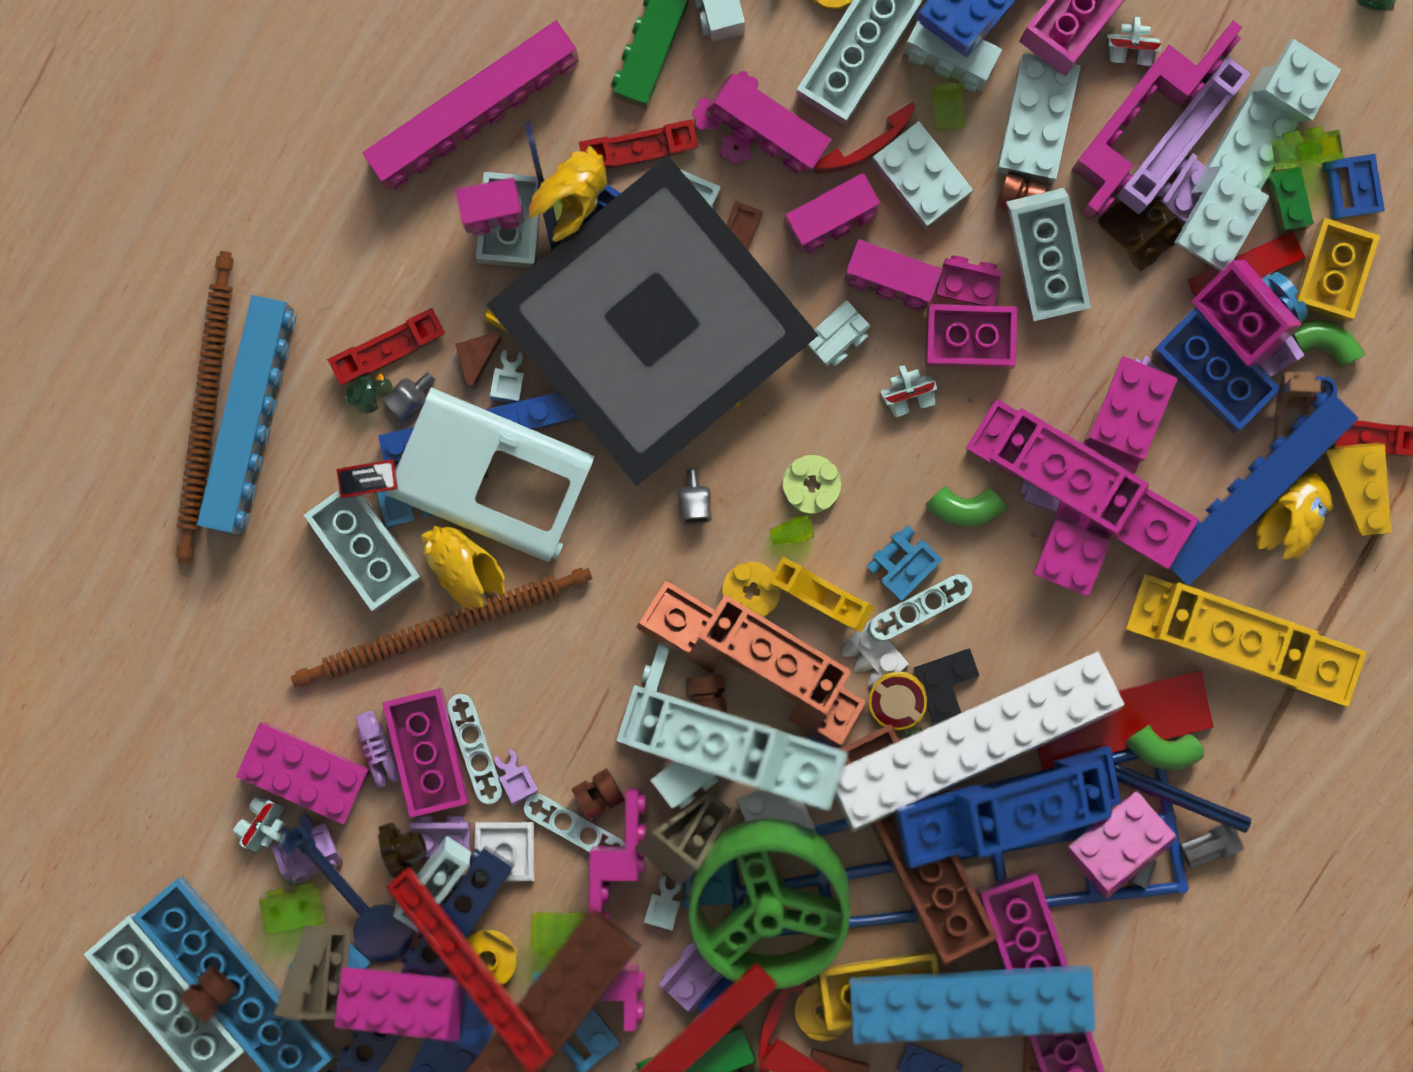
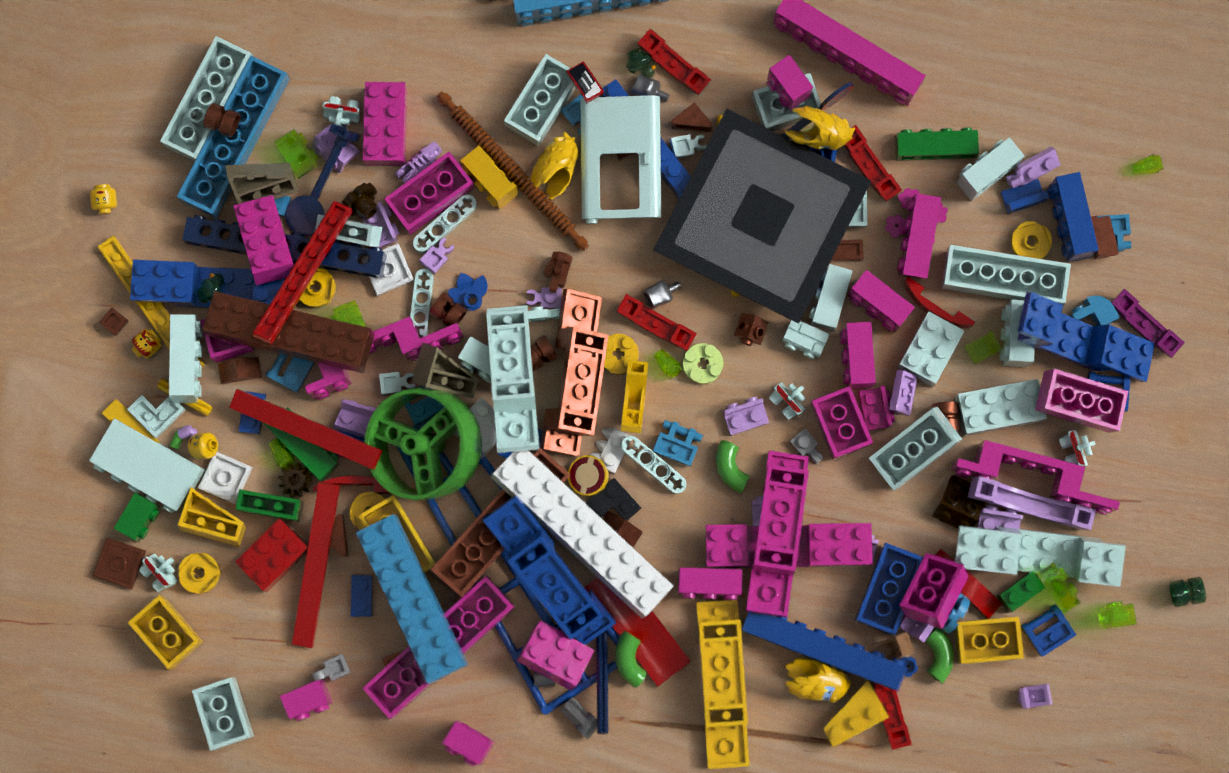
camera: 65 degrees right, 5 degrees down
(438, 664) = (489, 178): none -> yellow wedge
(577, 754) = (467, 289): none -> blue plate
(599, 615) = (560, 267): none -> copper rock
(636, 651) = (546, 298): none -> lavender plate
(732, 523) = (656, 323): none -> red slope
(795, 401) = (750, 329): none -> copper brick
(797, 277) = (830, 297): none -> light aqua brick
(906, 458) = (745, 416): none -> lavender bracket
(966, 237) = (903, 393): none -> lavender bracket
(976, 396) = (806, 444): none -> light grey plate
(987, 686) = (623, 528): none -> copper slope
(1110, 601) = (710, 583): none -> dark pink brick
(1190, 1007) = (468, 743): none -> dark pink brick
(1374, 89) = (1117, 615): none -> clear neon green brick

